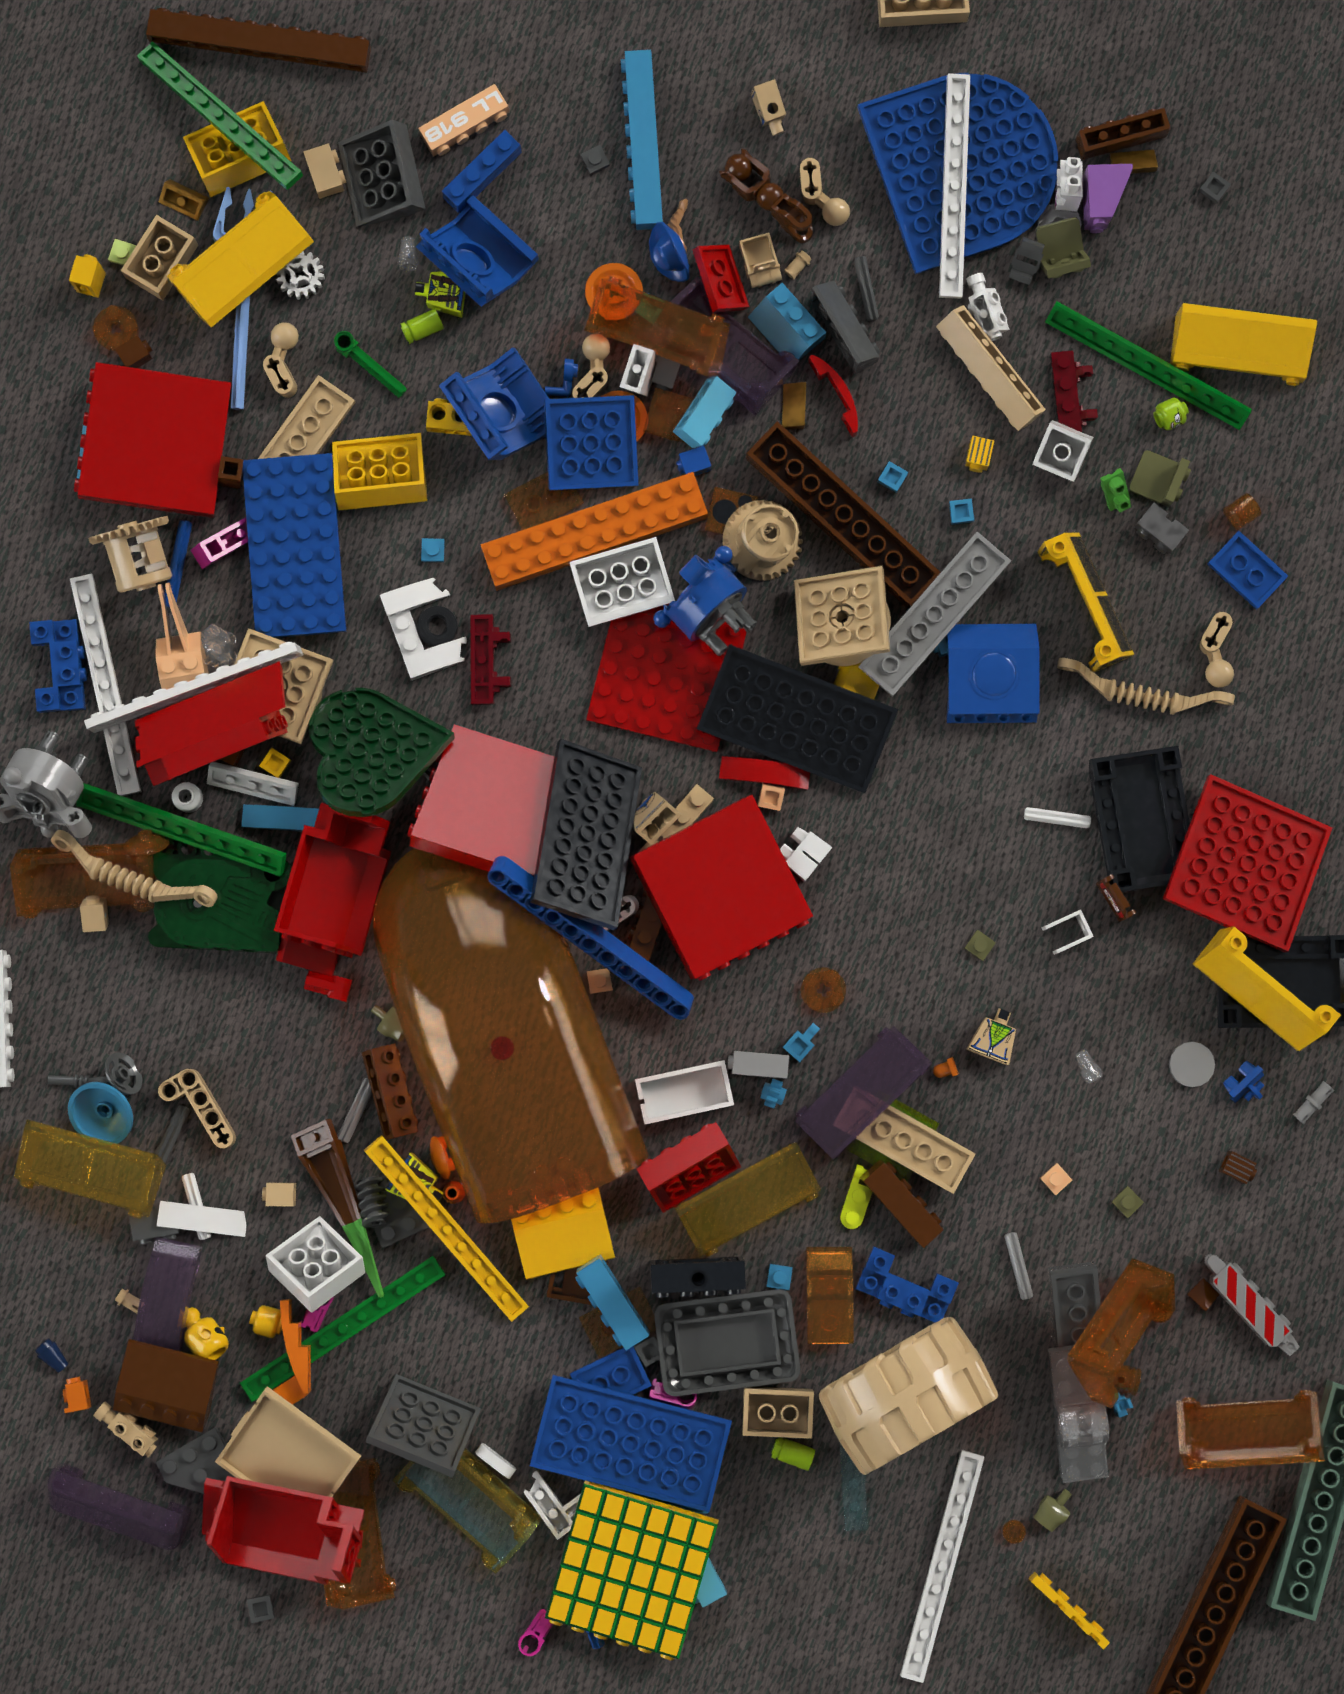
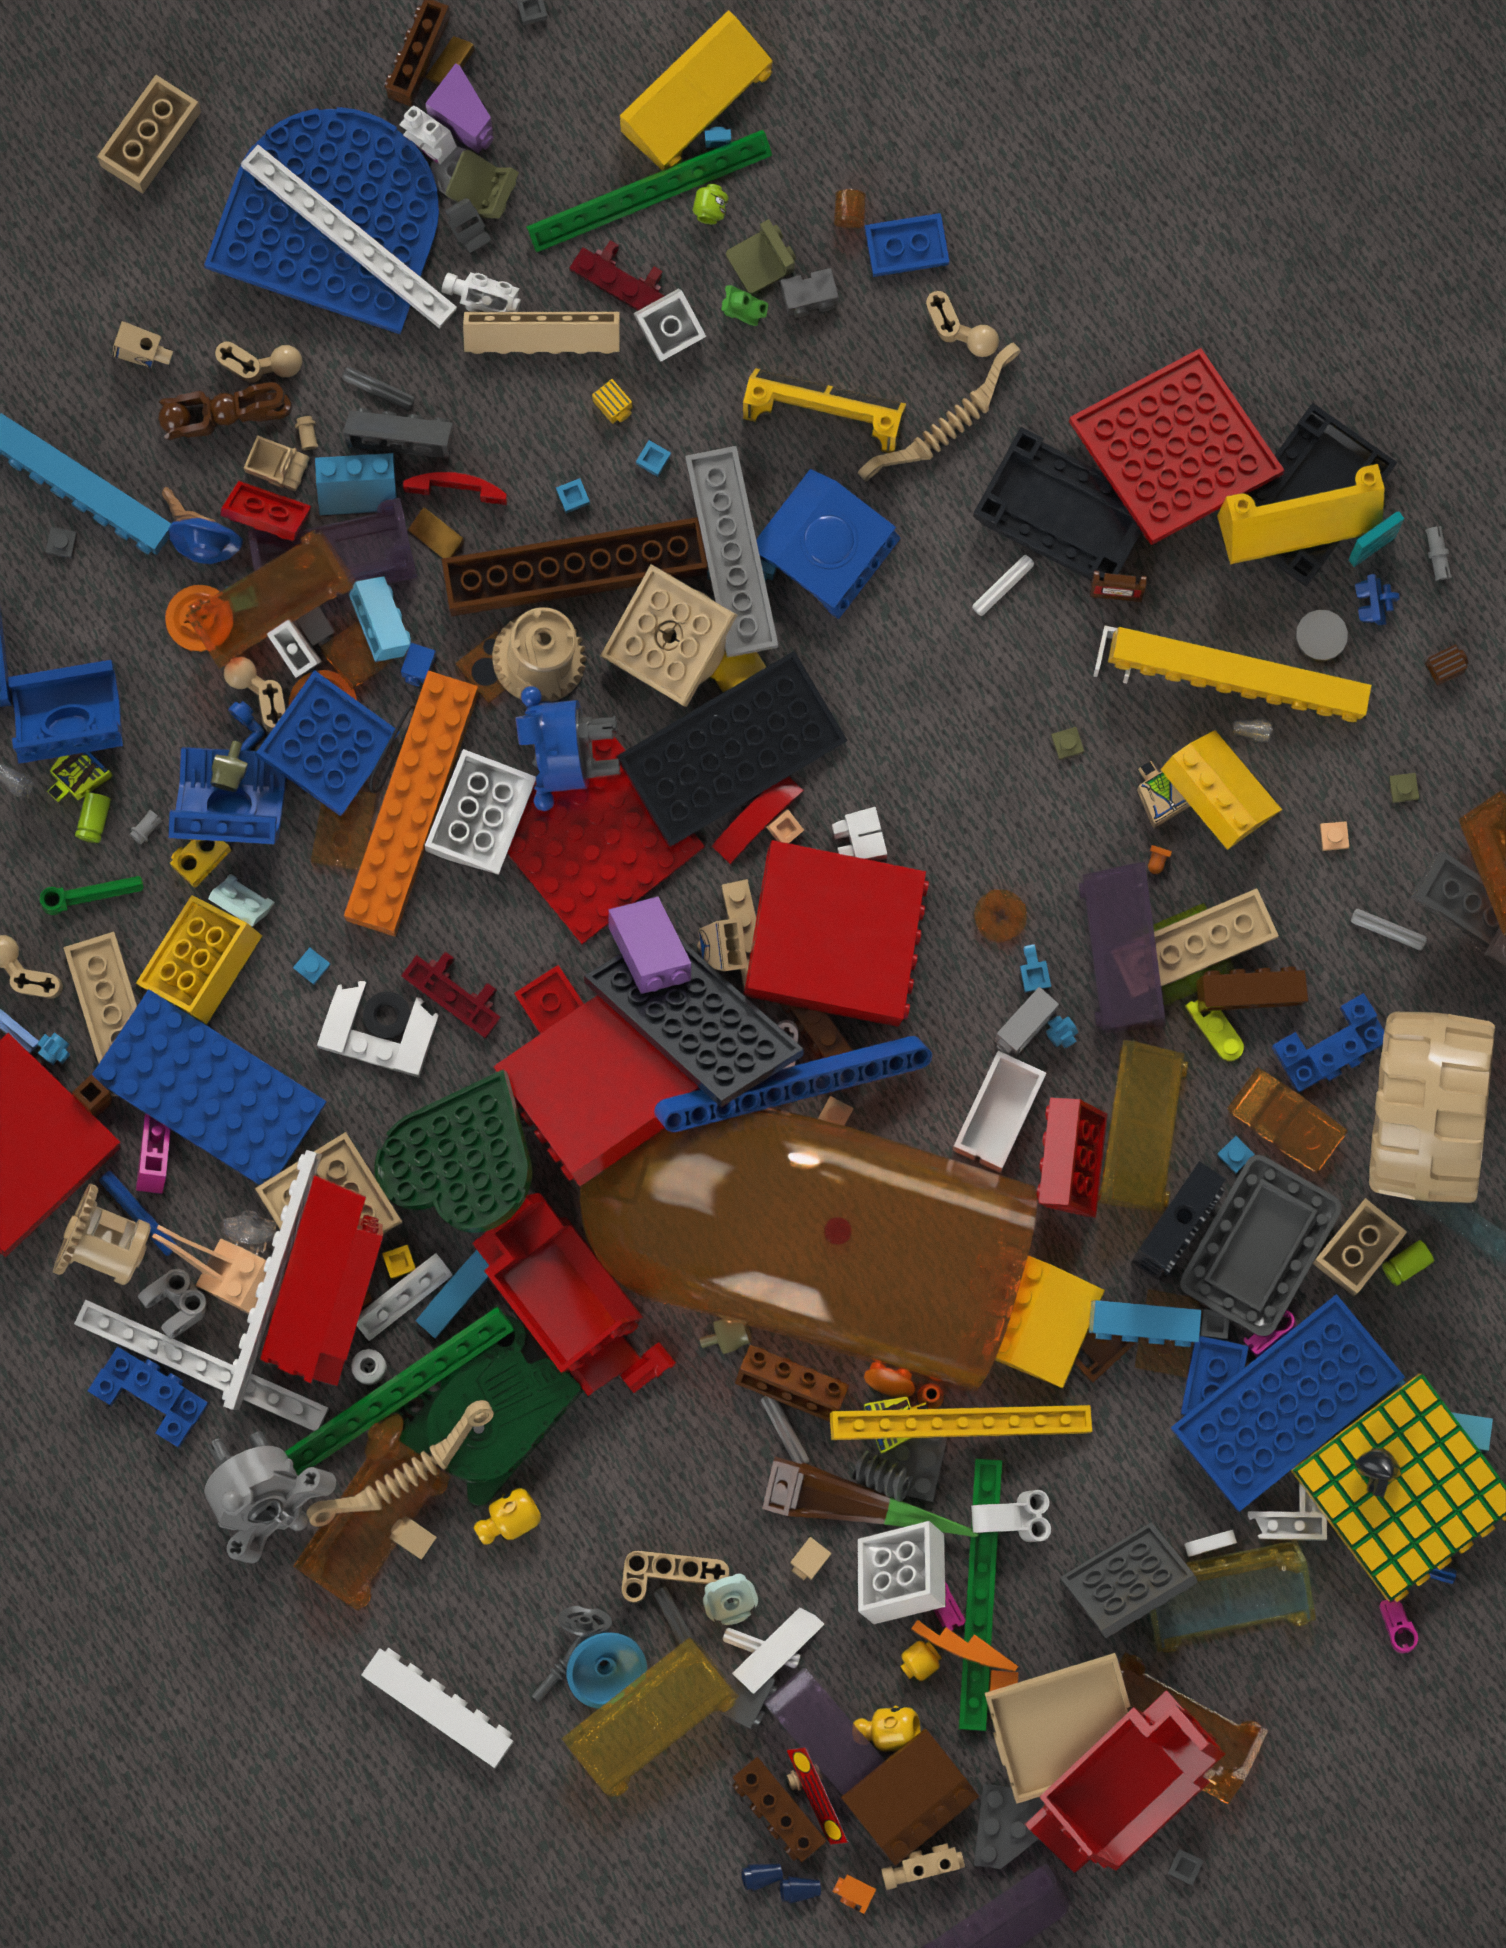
camera: 50 degrees left, 5 degrees down
(42, 1322) = (760, 1875): none -> dark blue cone
(94, 1301) = (779, 1809): none -> reddish brown brick
(121, 1321) = (817, 1795): none -> sticker
(139, 636) = (184, 1318): none -> light grey piece
(156, 969) = (510, 1517): none -> yellow piece
(209, 1151) = (733, 1587): none -> light aqua plate
(244, 421) = (53, 1048): none -> dark azure gear
(410, 1312) = (1014, 1517): none -> white piece
(435, 471) = (241, 901): none -> light aqua plate
(442, 366) = (145, 827): none -> light grey pin
(521, 391) = (229, 770): none -> olive piece
(530, 727) = (548, 999): none -> red plate
(616, 486) = (386, 750): none -> black piece
(616, 767) = (649, 945): none -> medium lavender brick
(627, 1546) = (1381, 1469): none -> black piece
(1027, 1076) = (1220, 788): none -> yellow slope
(1118, 1028) = (1239, 674): none -> yellow brick
(1222, 382) = (717, 137): none -> dark azure plate
(1288, 1052) = (1376, 538): none -> teal tile

